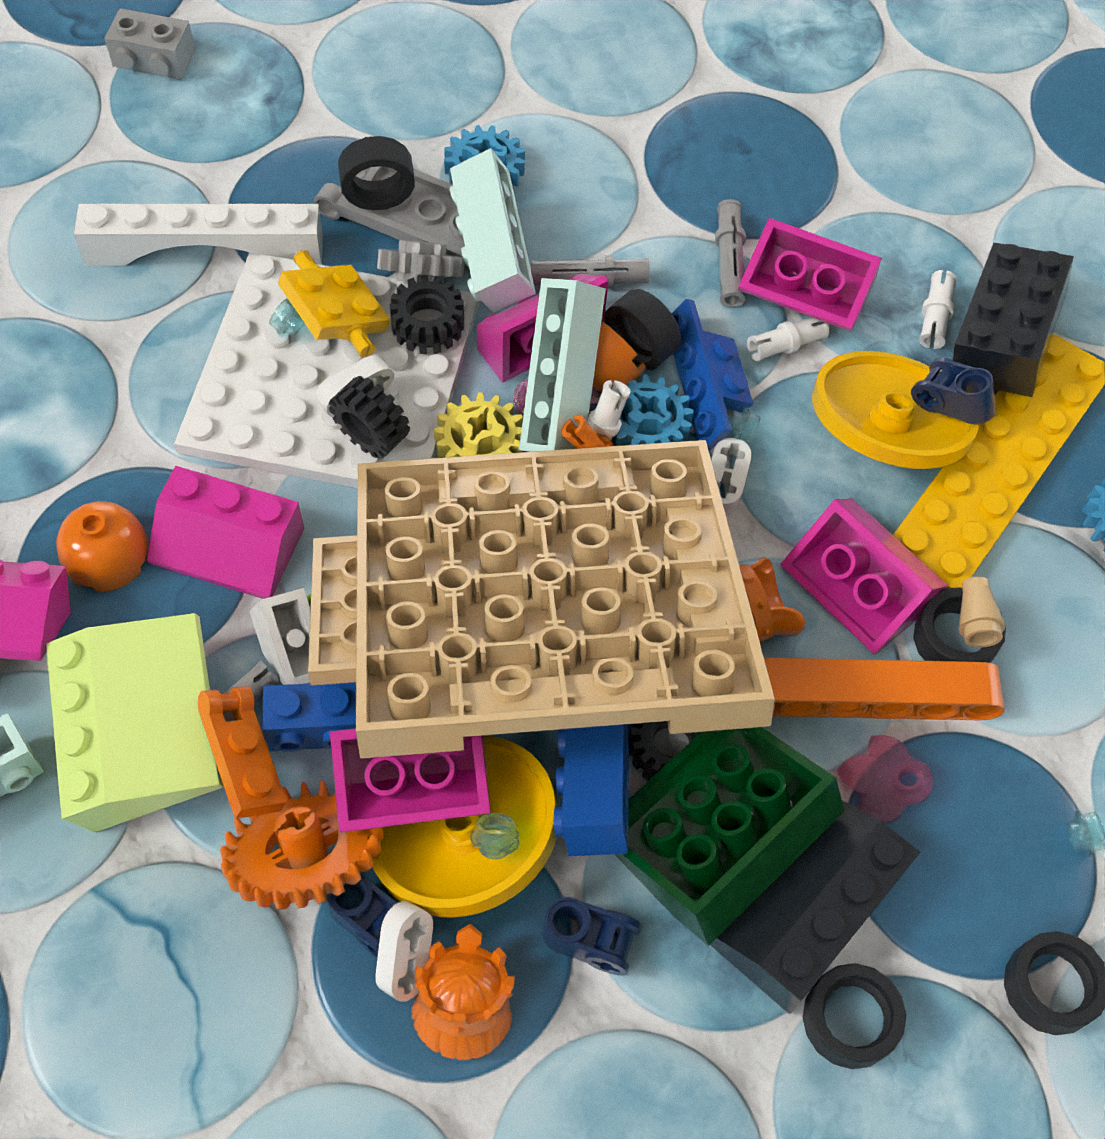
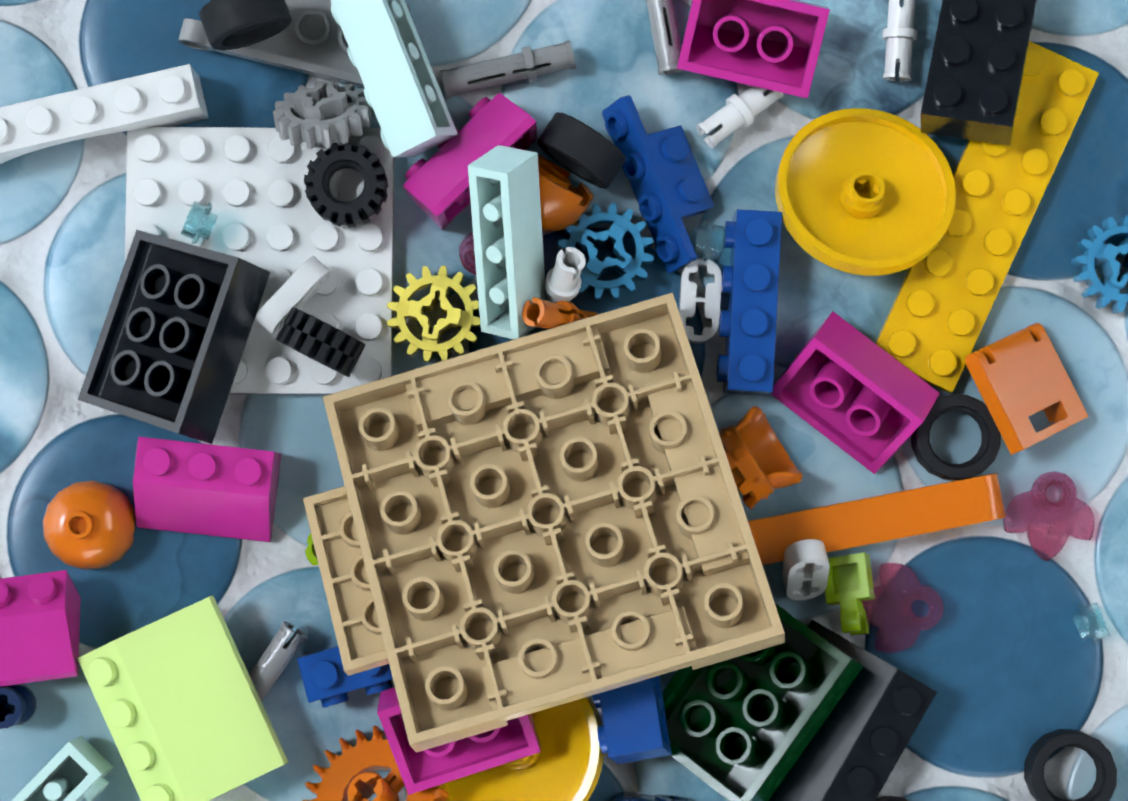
camera: 10 degrees left, 25 degrees up
(239, 397) = (174, 335): none -> black slope
(241, 752) = (295, 729): orange plate -> none
(284, 634) = (301, 592): white slope -> none
(334, 302) = (243, 195): yellow plate -> none
(495, 835) = (550, 755): clear light blue plate -> none
(777, 479) = (751, 302): none -> blue brick
(805, 712) = (805, 569): none -> white beam
(836, 743) = (849, 585): none -> lime plate
(958, 390) = (920, 159): dark blue piece -> none
(980, 616) = (972, 429): tan cone -> none
(1030, 589) = (1020, 379): none -> orange container
(1046, 730) = (1048, 522): none -> clear pink plate

